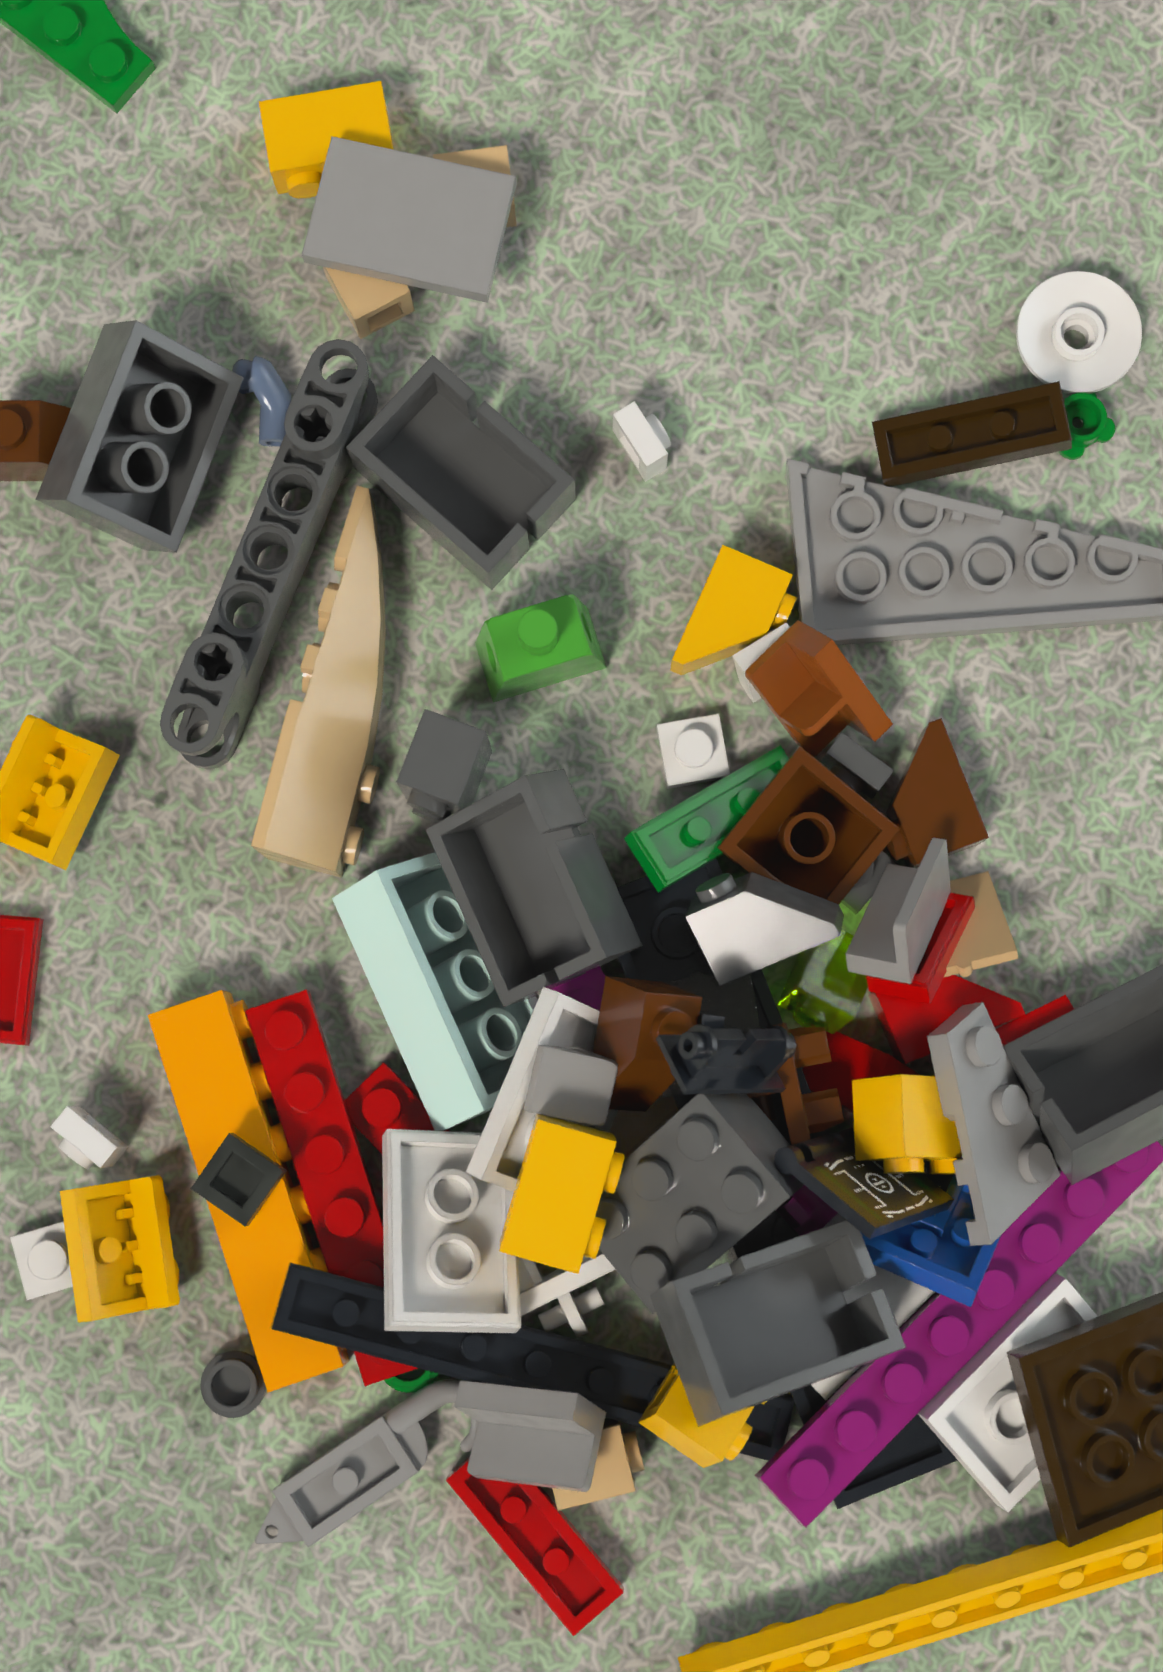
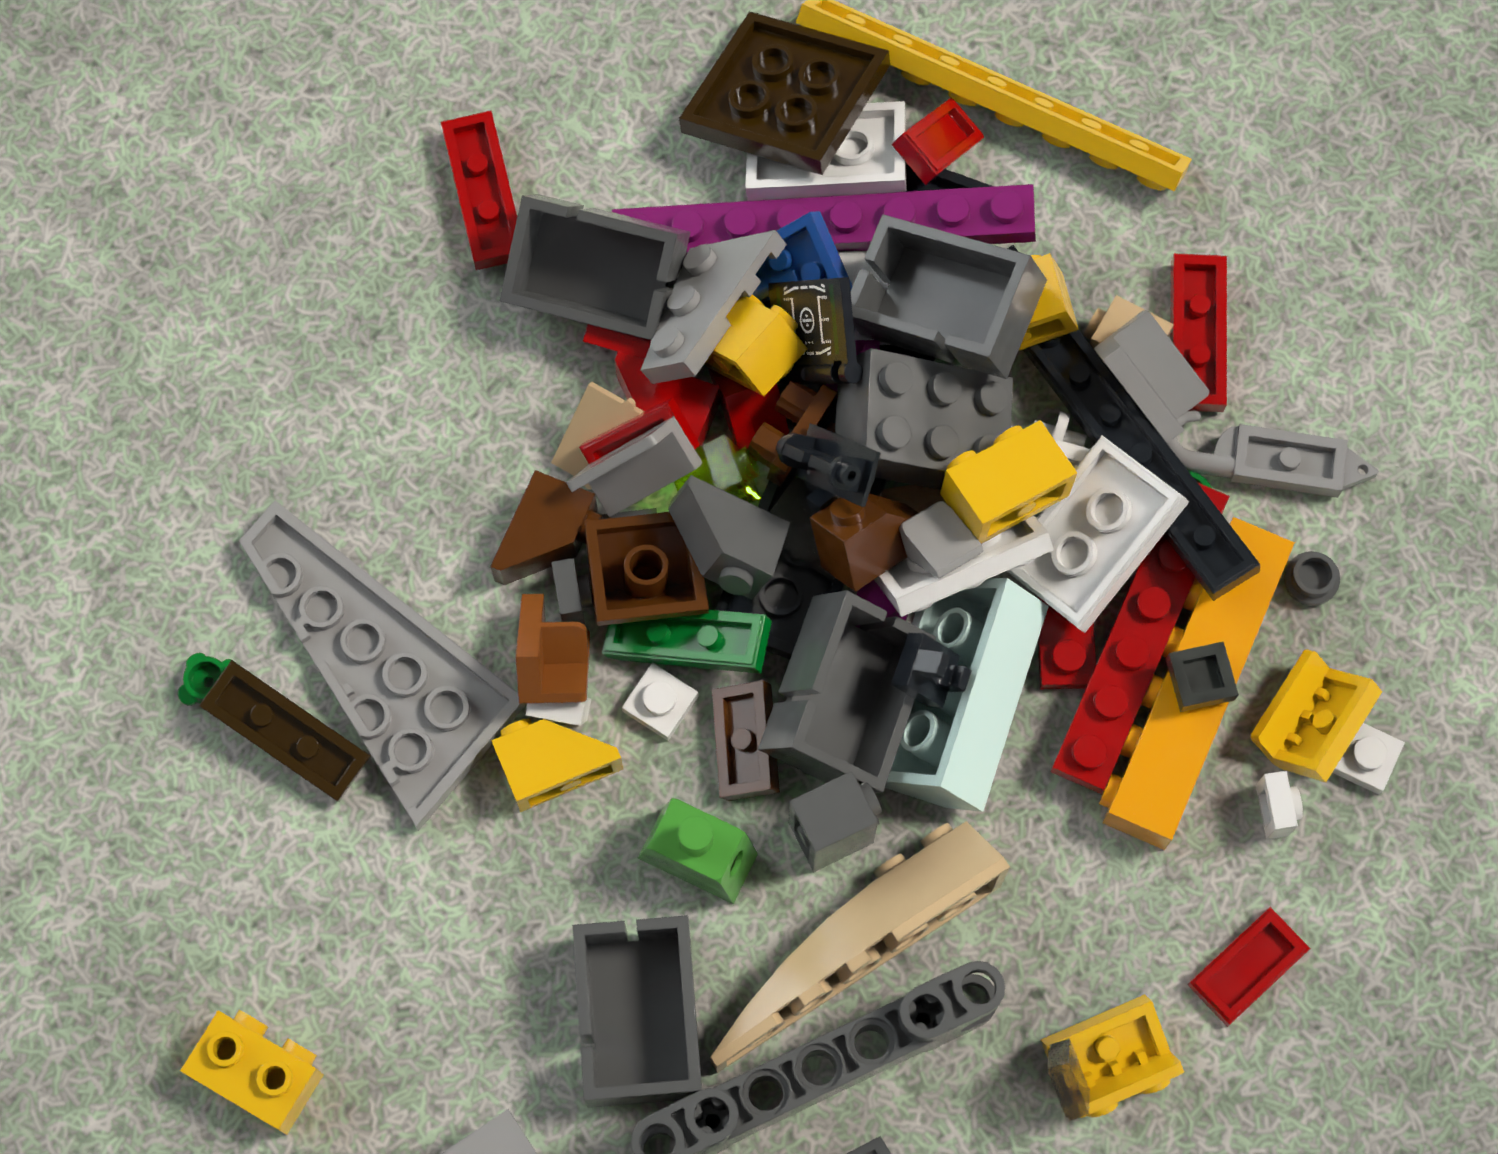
camera: 140 degrees left, 10 degrees down
(60, 731) = (1068, 1079): none -> clear smoke tile
(478, 965) = (929, 671): none -> black tile
(604, 787) = (739, 725): none -> plate
(642, 440) = (495, 928): white plate -> none
(723, 161) = (254, 1071): none -> yellow brick
(939, 1499) = (938, 140): none -> red tile
(1096, 310) = (134, 712): white dish -> none

